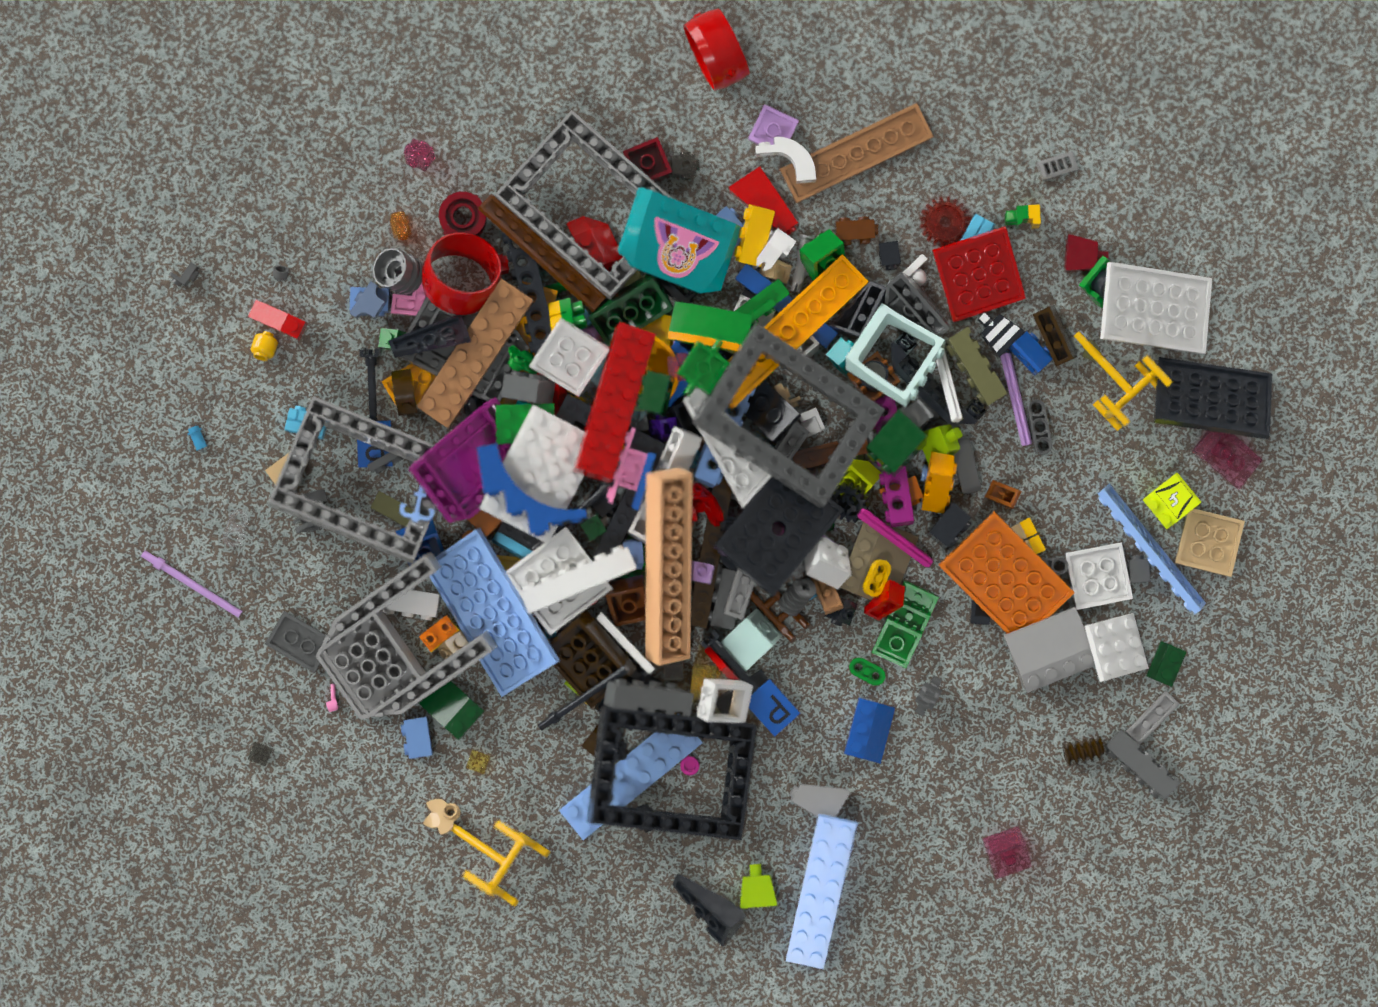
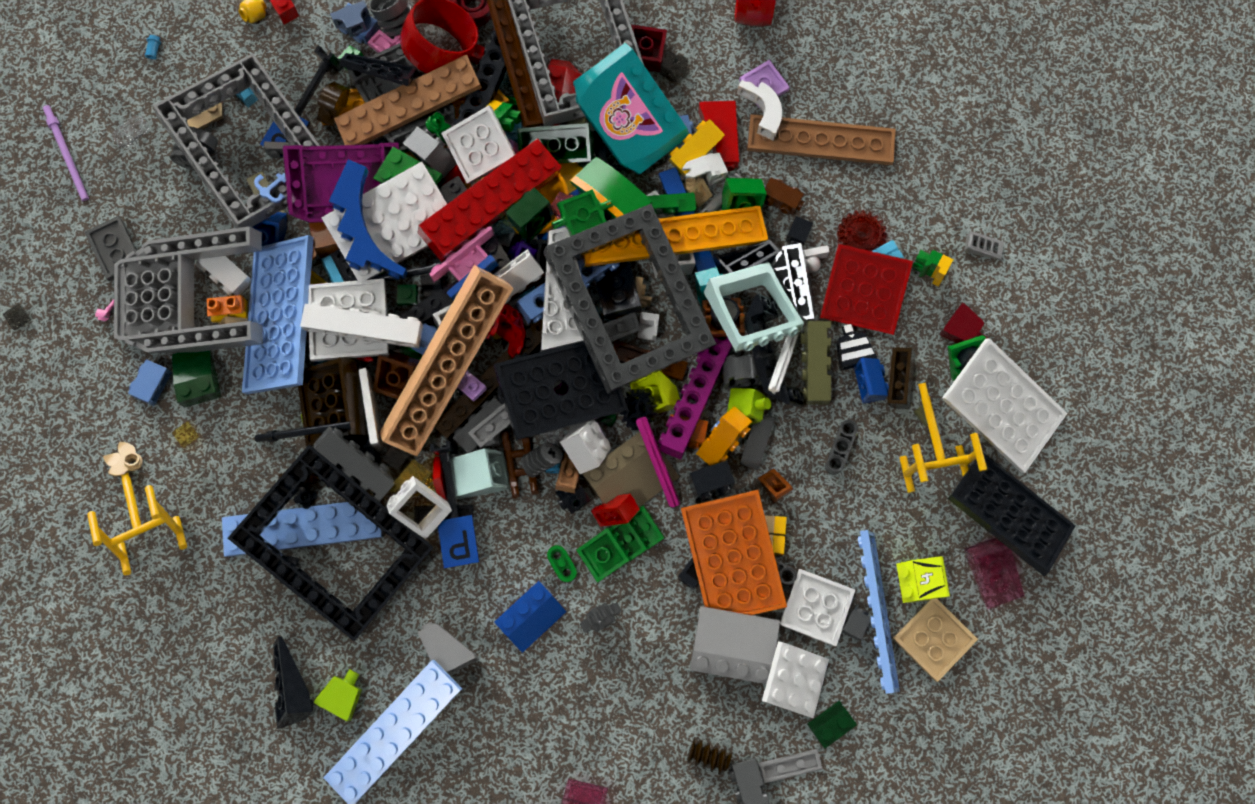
camera: 35 degrees right, 10 degrees down
(689, 765) = (357, 549): dark pink tile -> none
(876, 578) = (619, 485): yellow plate -> none
(896, 444) = (708, 379): dark green slope -> none
(1016, 399) = (835, 412): lavender axle -> none

